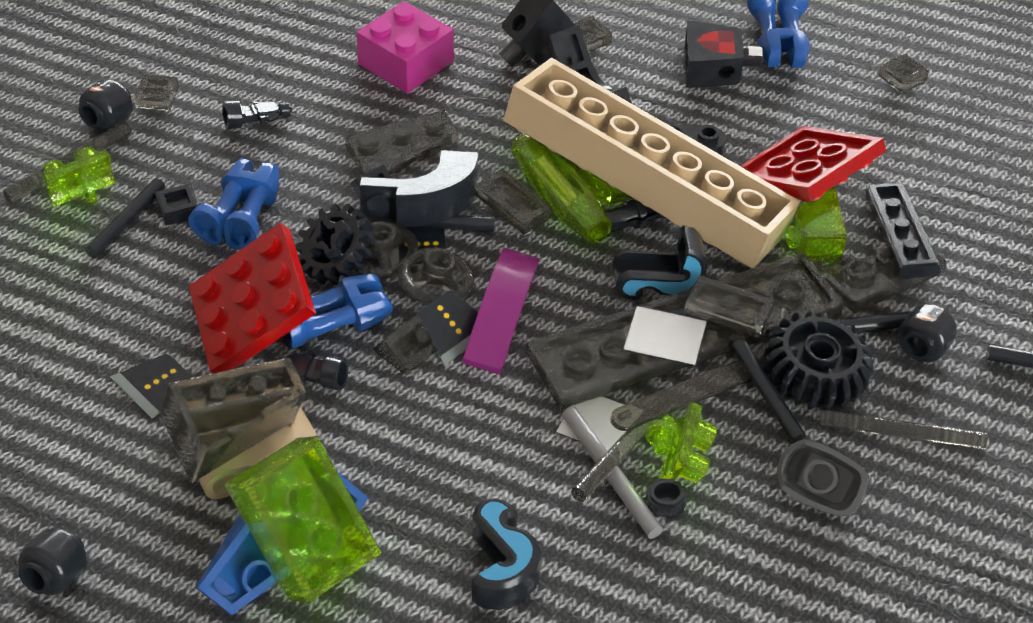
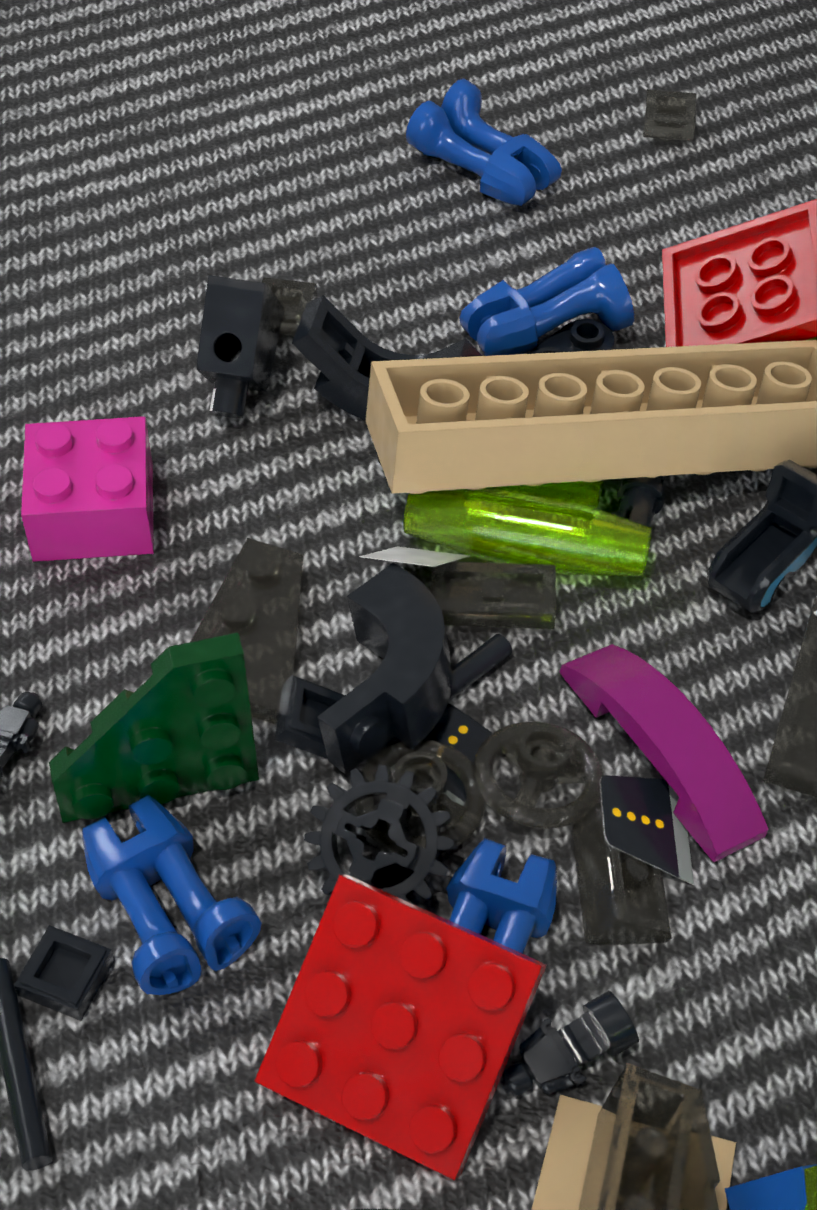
camera: 45 degrees left, 5 degrees up
(302, 142) = (167, 739): none -> dark green plate
(496, 161) = (415, 556): none -> white sticker
(681, 104) = (512, 319): none -> blue piece
(716, 55) = (459, 230): black torso -> none

